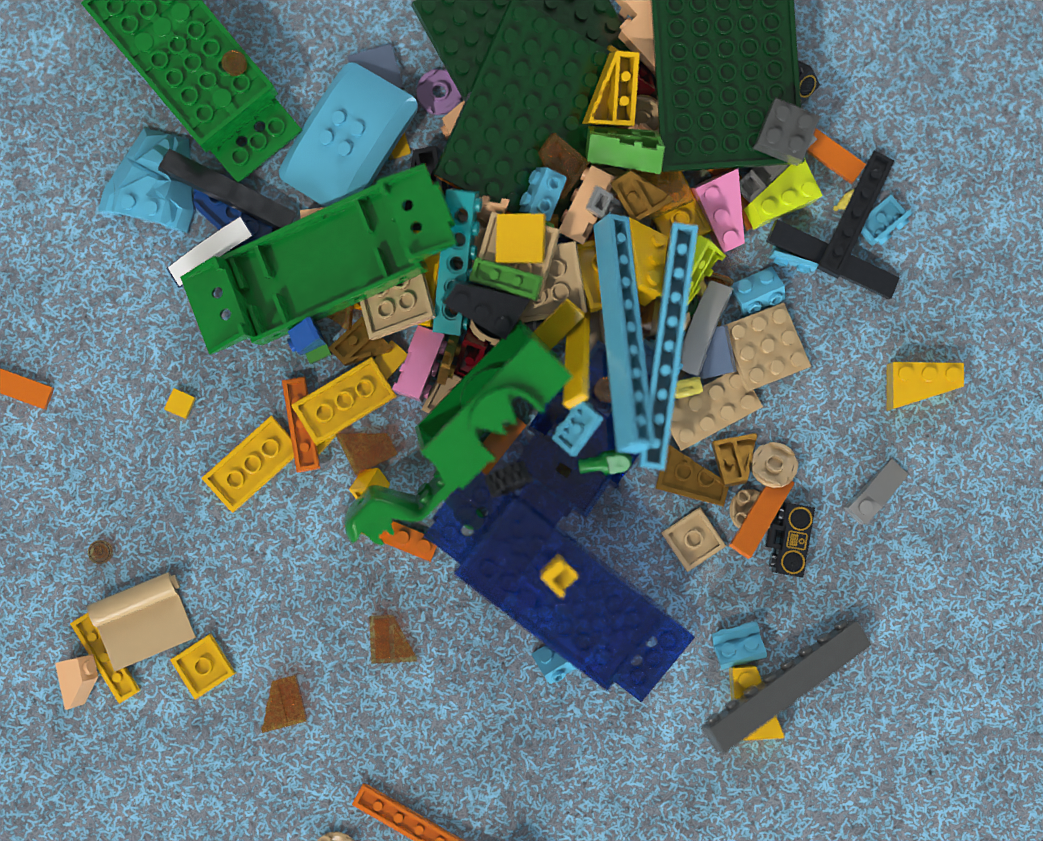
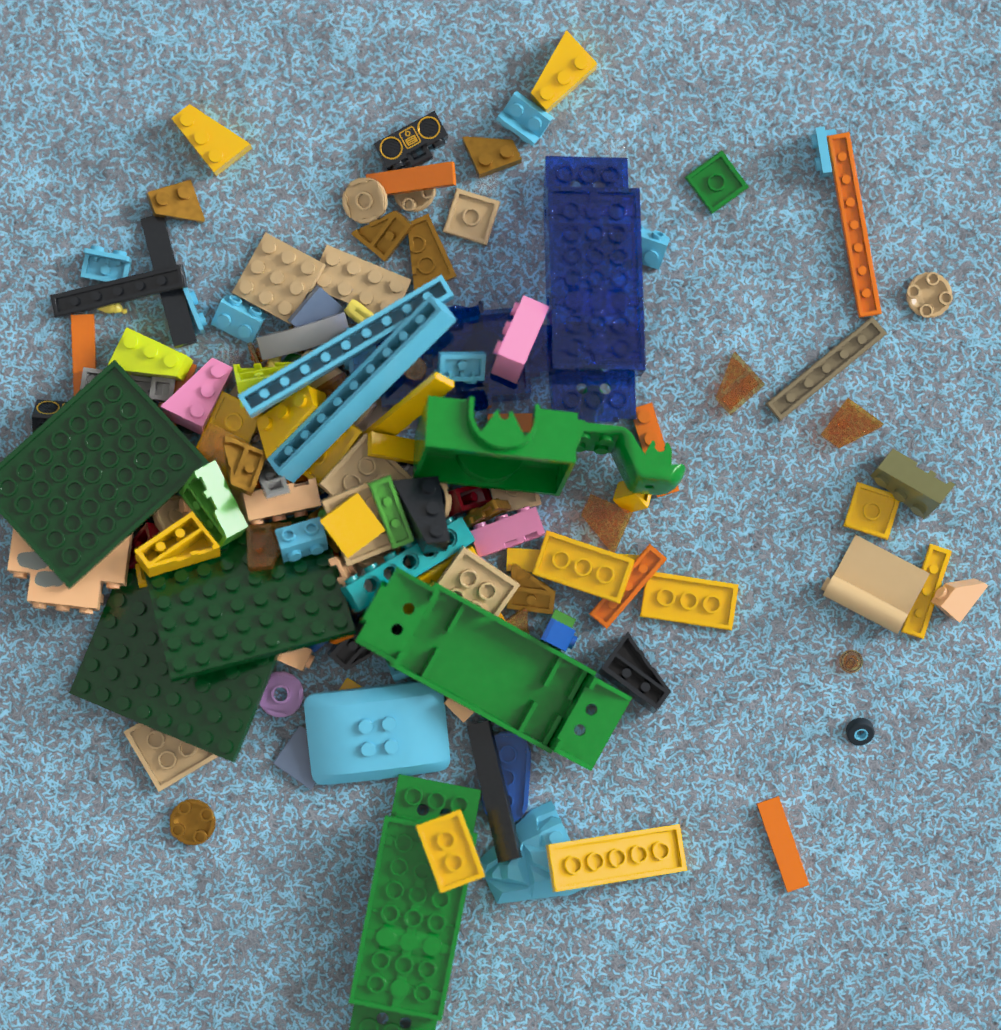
camera: 125 degrees left, 0 degrees up
(46, 516) = (857, 725): none -> black wheel
(97, 241) = (616, 858): none -> yellow plate
(179, 403) = (688, 695): yellow tile -> none
(194, 714) = (911, 484): none -> olive wedge
(202, 111) = (450, 851): none -> yellow plate
(217, 244) = (552, 767): white slope -> none
(228, 372) = (634, 675): none -> black wedge
(234, 63) = (392, 859): clear orange tile -> none
(344, 724) = (826, 368): none -> dark tan tile
(508, 479) = (542, 385): black tyre -> none
(558, 575) = (583, 290): yellow panel -> none
(562, 492) = (519, 338): none -> bright pink wedge
(564, 758) = (716, 182): none -> green tile
(608, 462) = (468, 324): green arm -> none
(731, 595) = (491, 154): none -> pearl gold wing
(785, 685) = (526, 59): dark grey brick -> none
(786, 132) = (105, 389): dark grey brick -> none
(875, 492) = (322, 106): light grey slope -> none
(890, 316) = (177, 202): none -> pearl gold wing

